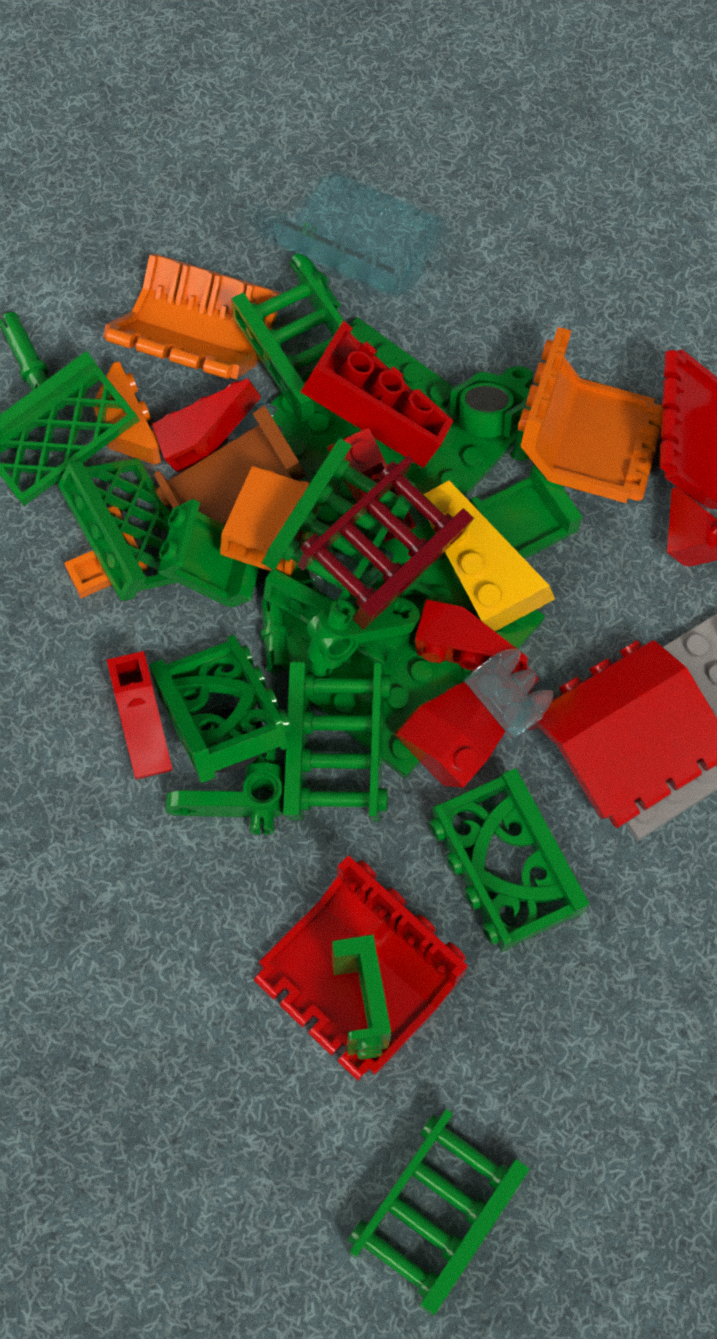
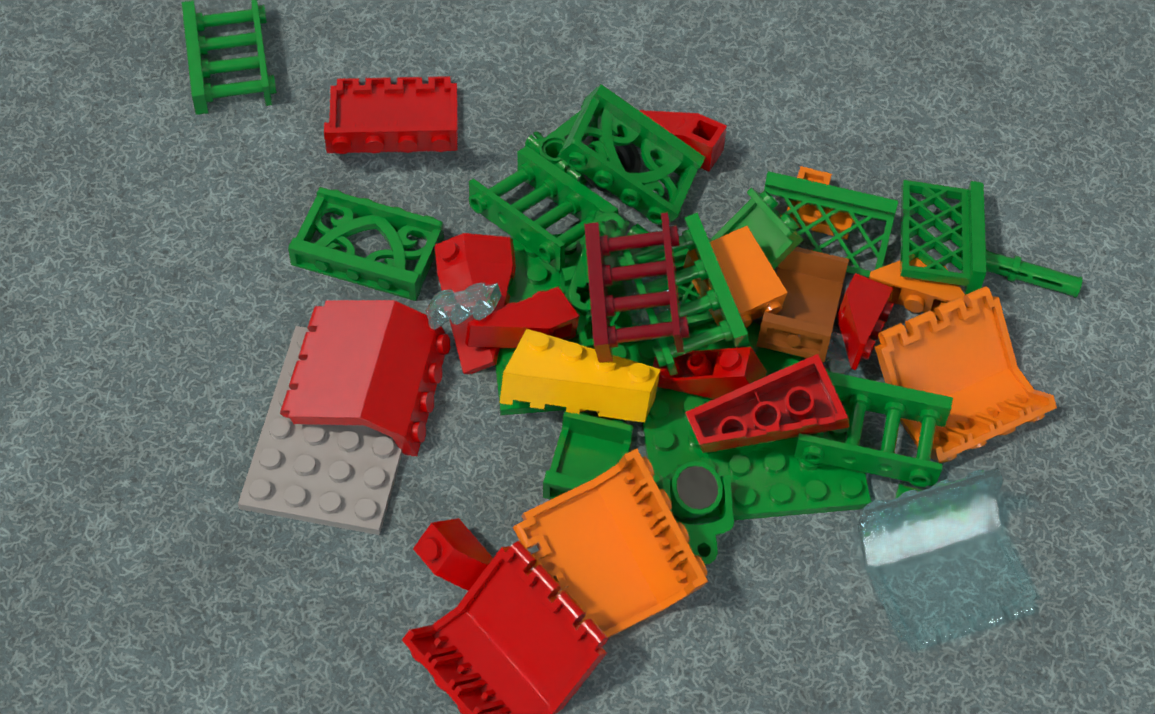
camera: 135 degrees right, 10 degrees down
(360, 956) = (371, 92): green panel -> none

